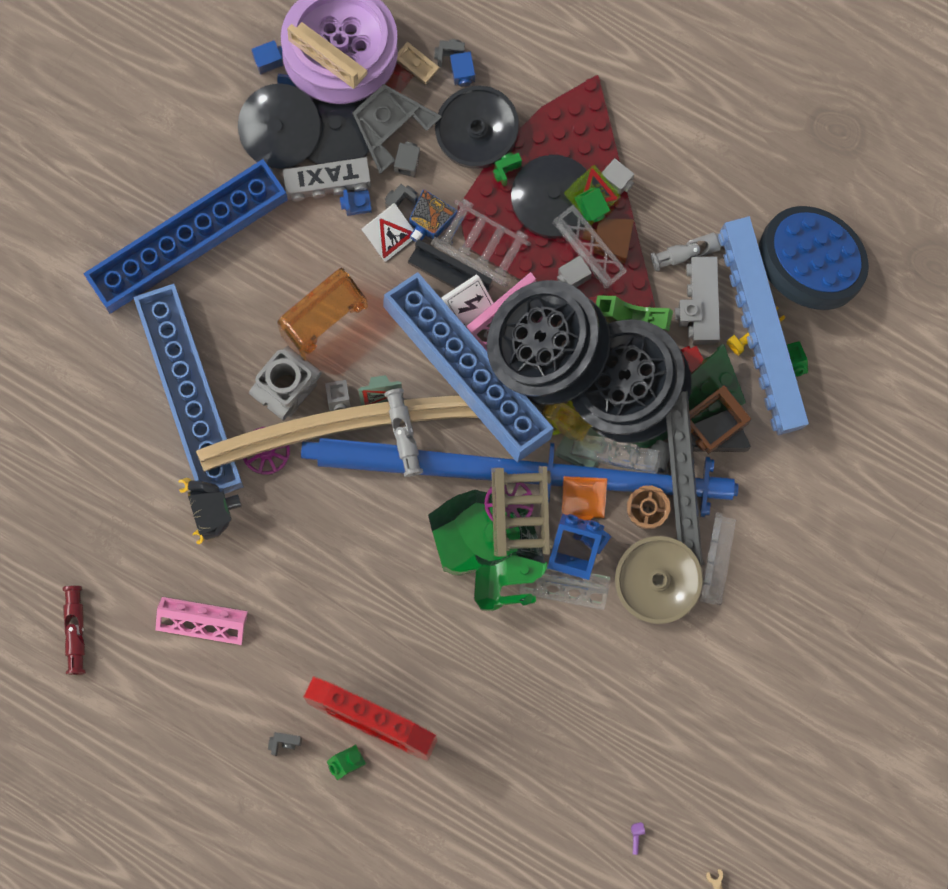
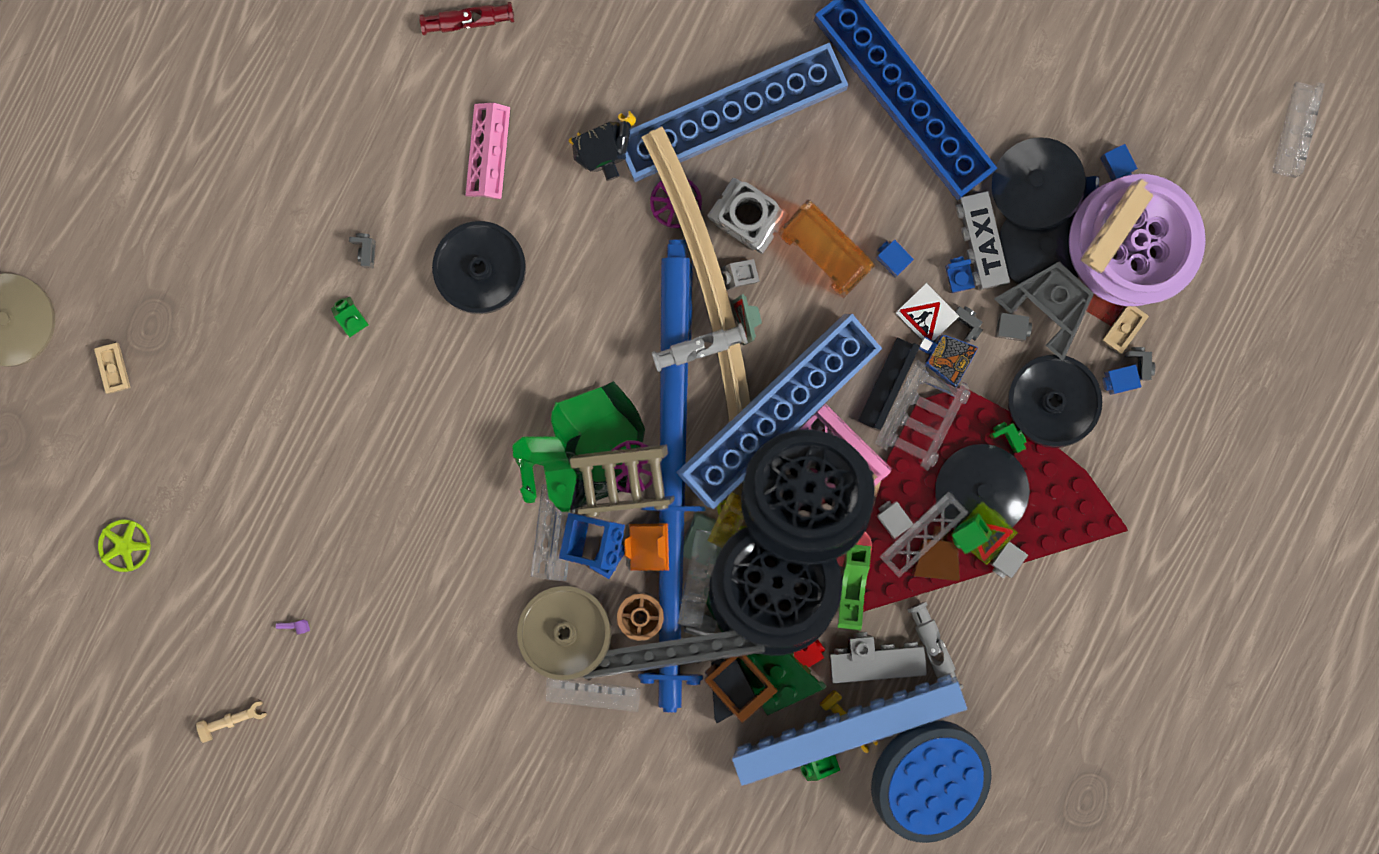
camera: 85 degrees right, 10 degrees up
(311, 634) = (479, 267): none -> black dish
(335, 257) = (893, 257): none -> blue brick
(370, 718) = (383, 337): red panel -> none
(468, 300) = (855, 405): white tile -> none

